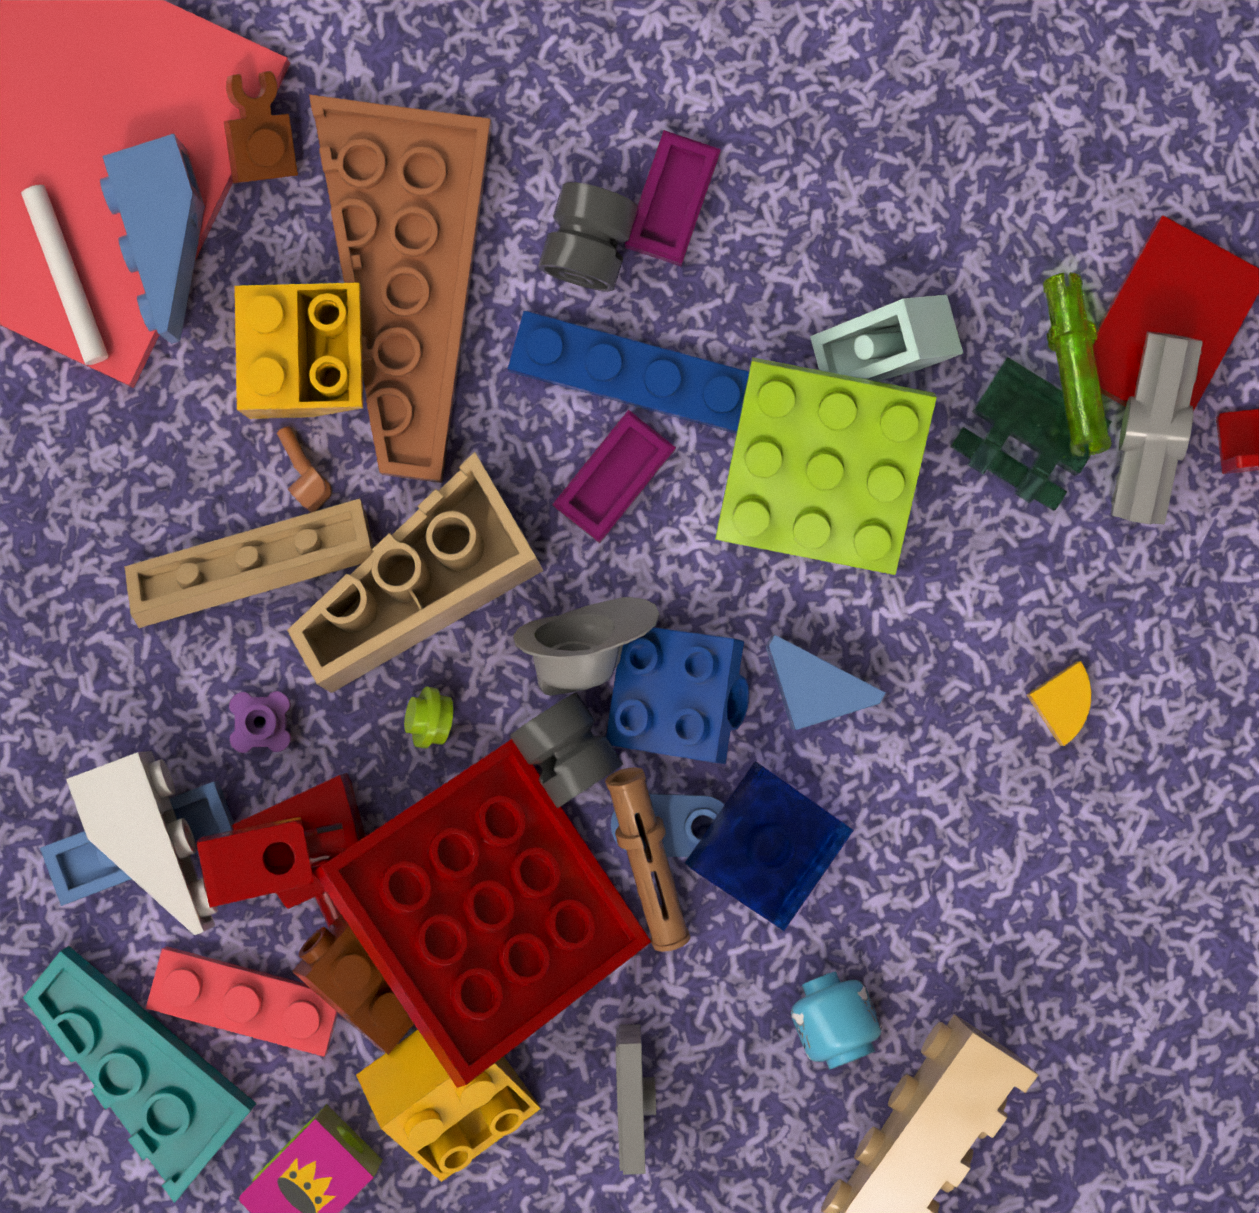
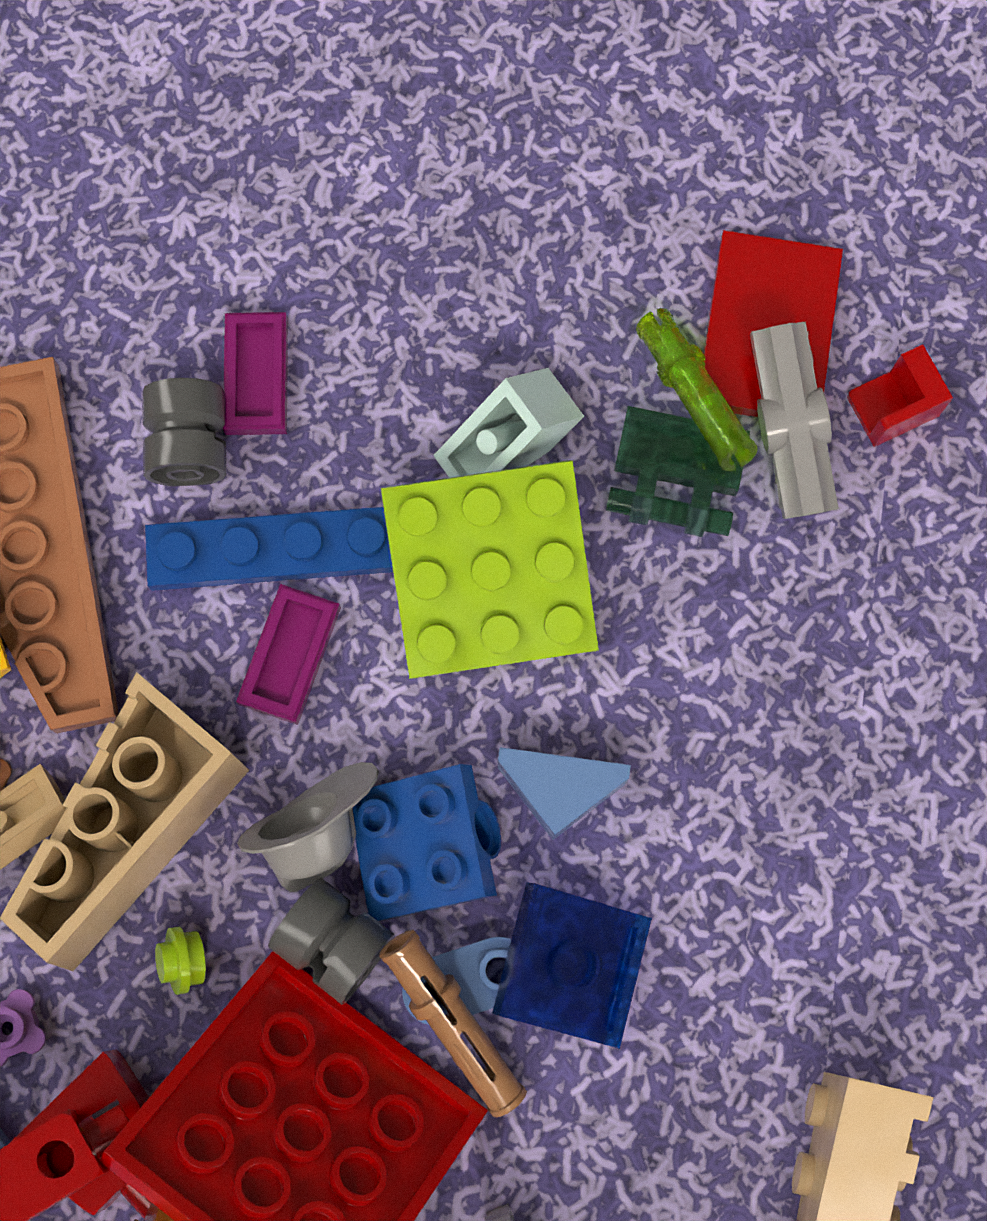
camera: 20 degrees left, 10 degrees down
(836, 1020) = (706, 1122): medium azure head -> none
(1064, 702) = (810, 716): yellow tile -> none

